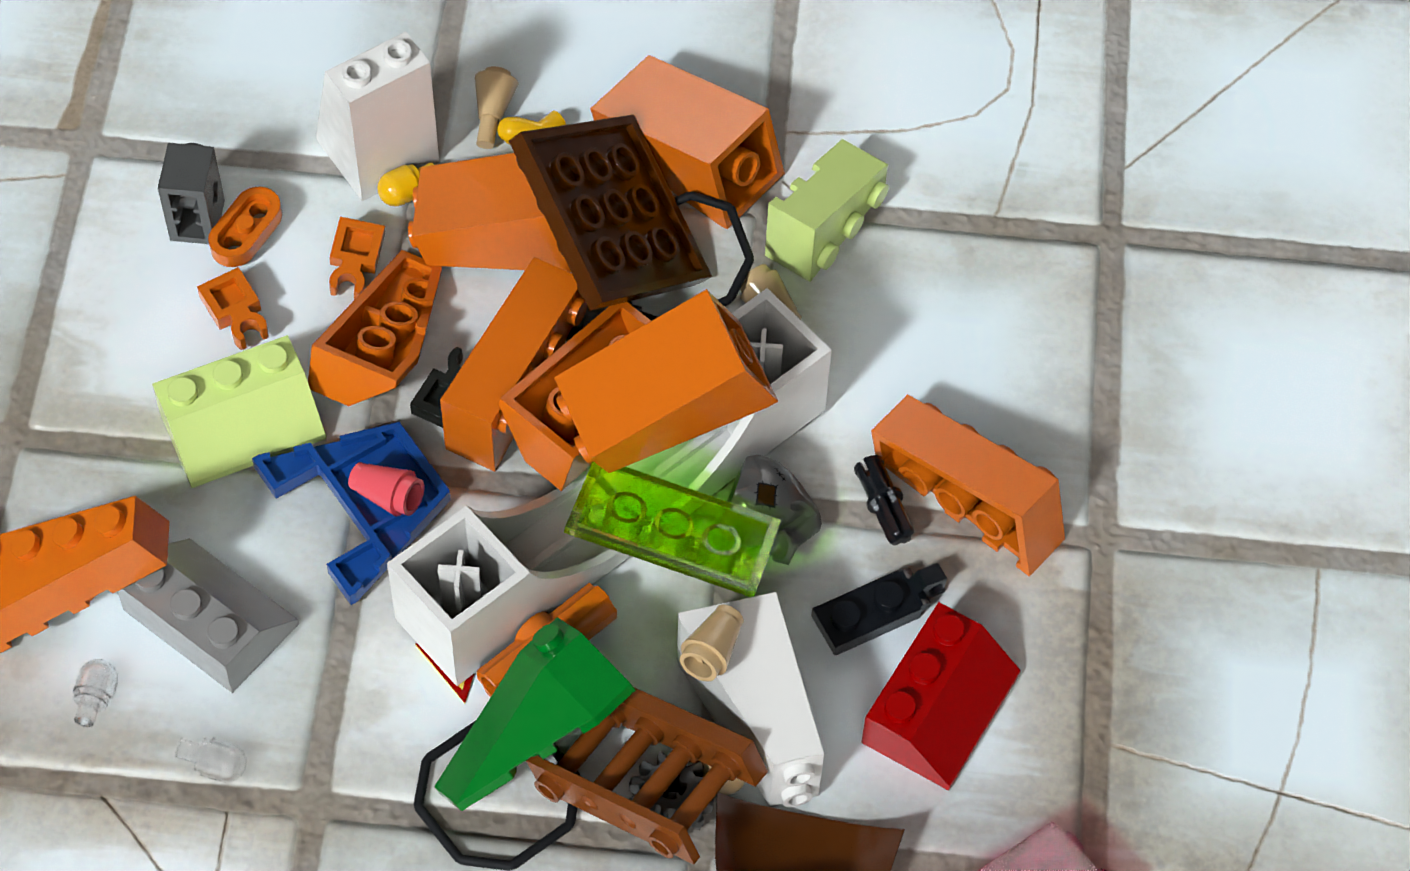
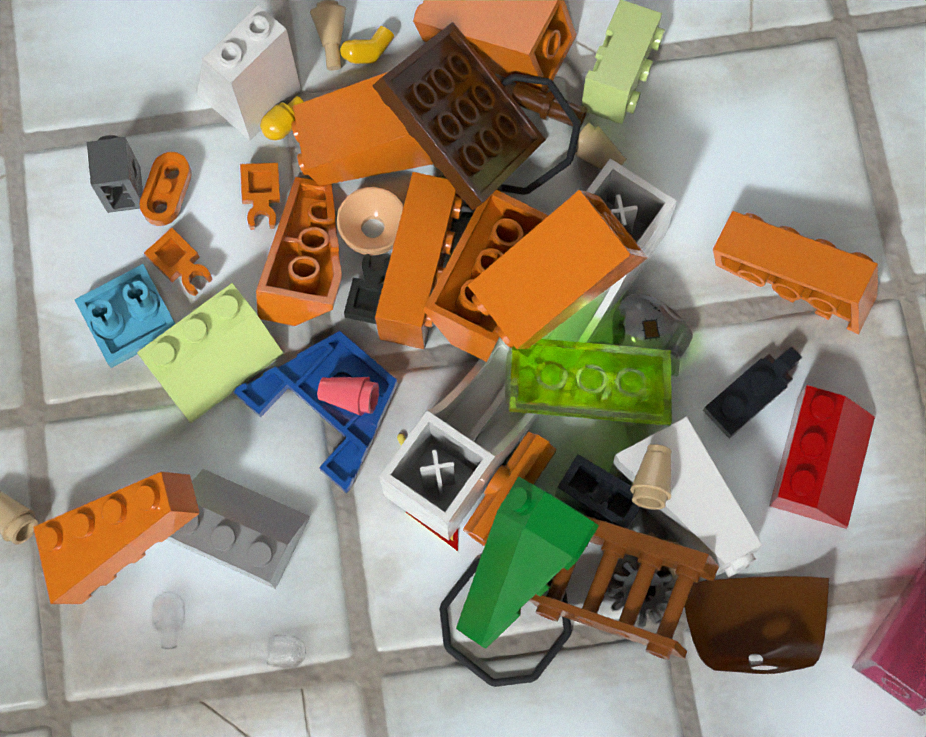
camera: 10 degrees left, 15 degrees up
(151, 347) = (125, 315): none -> medium azure plate
(464, 299) = (363, 206): none -> light nougat piece
(652, 663) = (597, 493): none -> black brick
(722, 236) = (545, 104): none -> reddish brown pin
(884, 500) = (735, 301): black axle -> none

